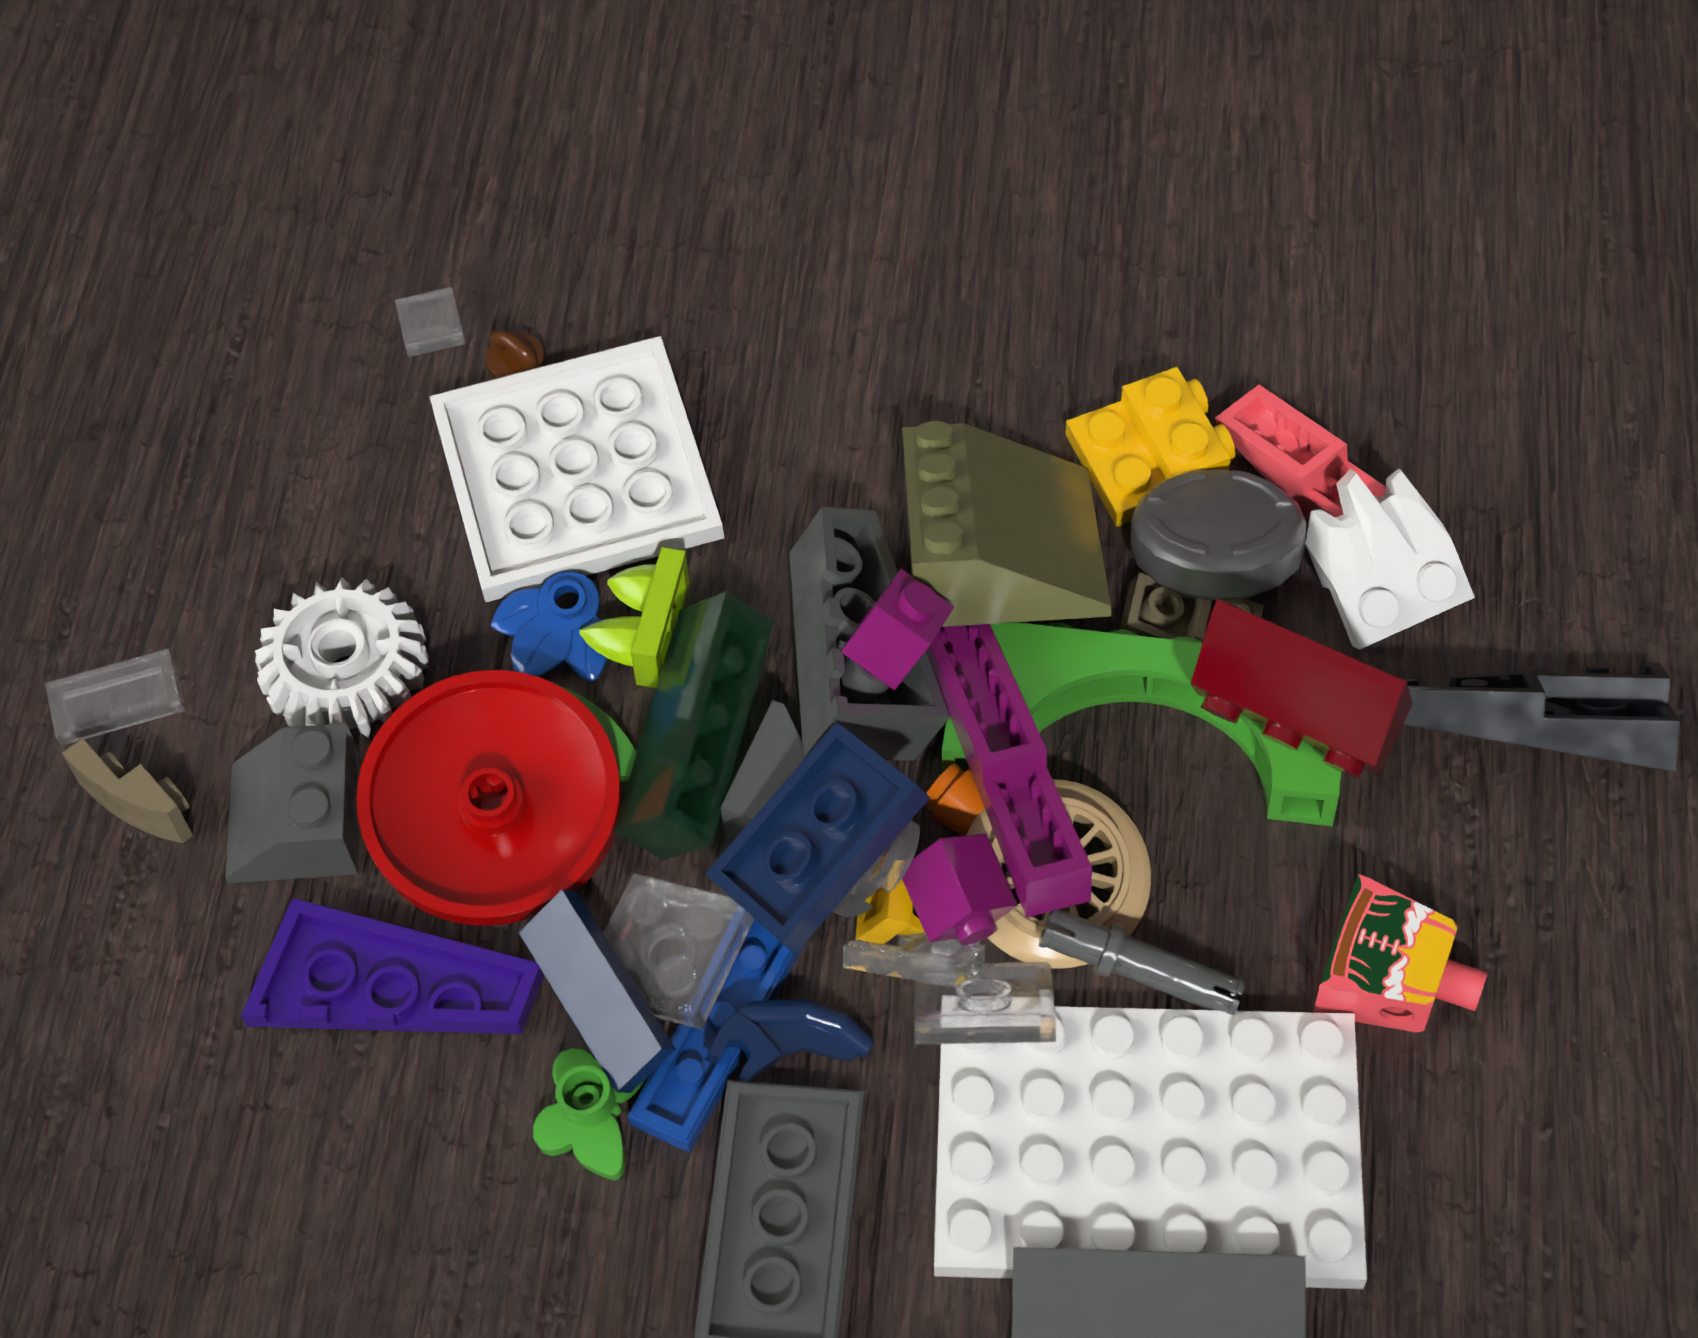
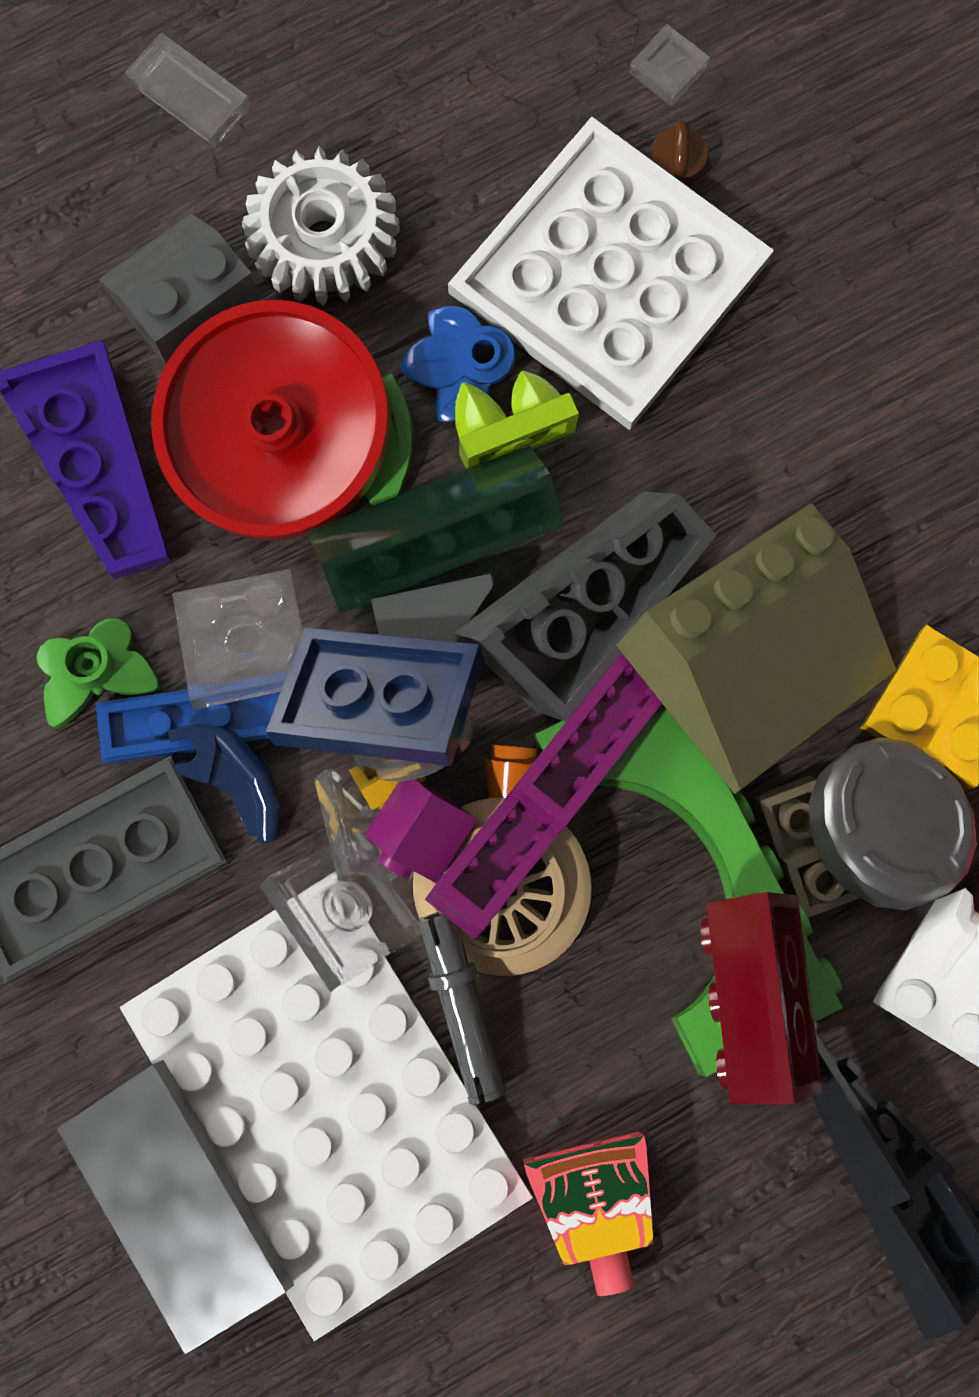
camera: 50 degrees right, 20 degrees up
(130, 795) = (109, 166): dark tan slope -> none
(597, 991) = (165, 613): tile -> none
(898, 629) = (593, 636): magenta brick -> none

